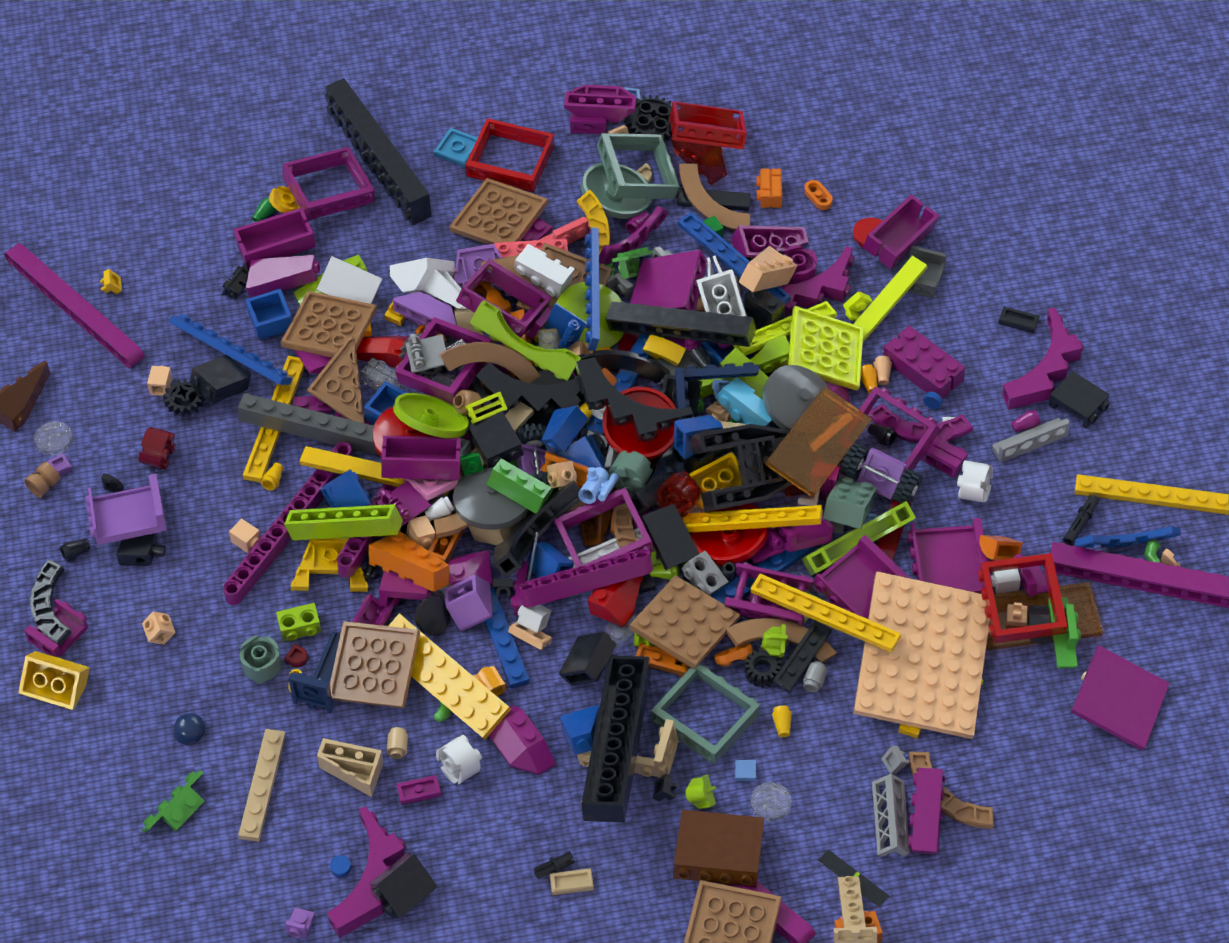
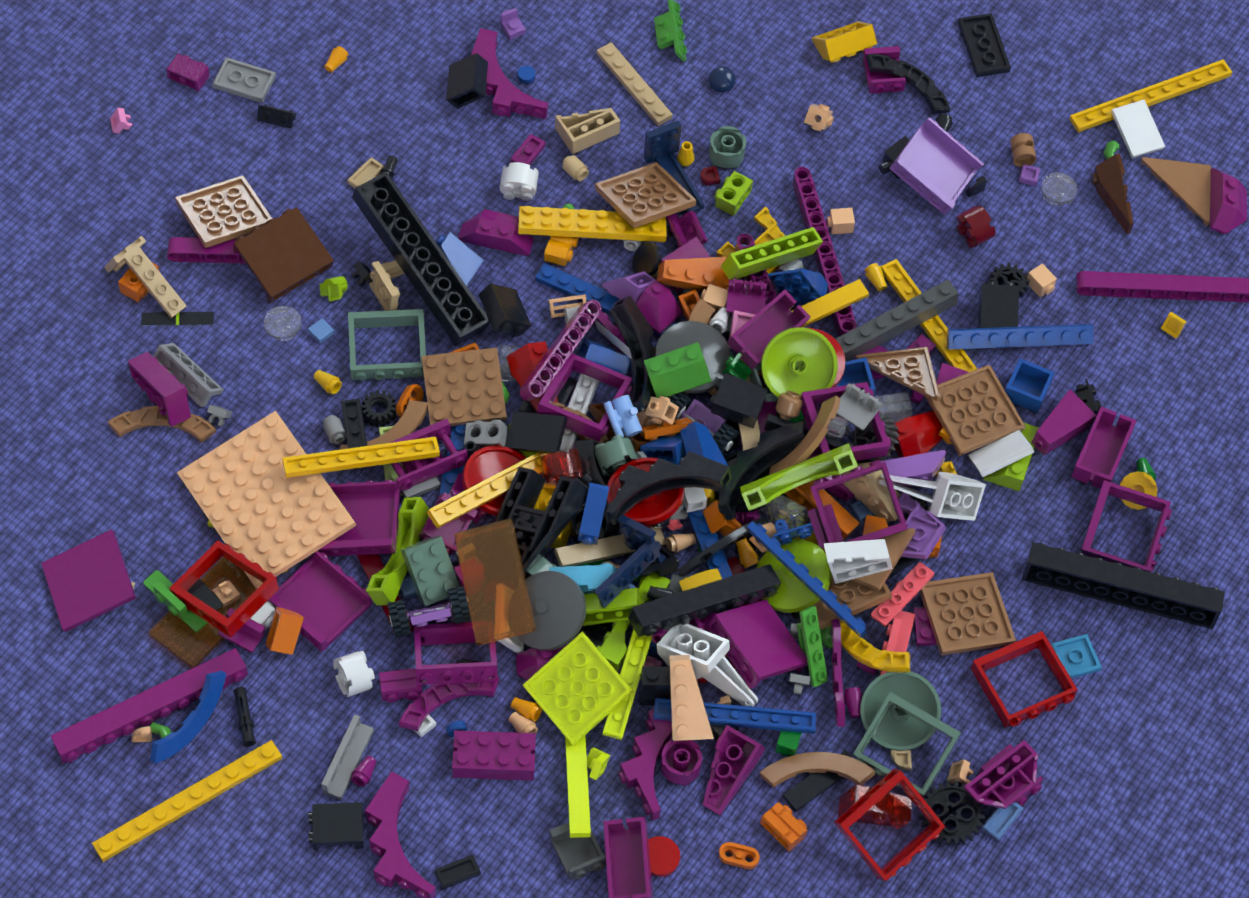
camera: 130 degrees right, 5 degrees up
(472, 413) = (772, 409): neon yellow tile -> none
(774, 640) = (383, 421): lime piece -> none

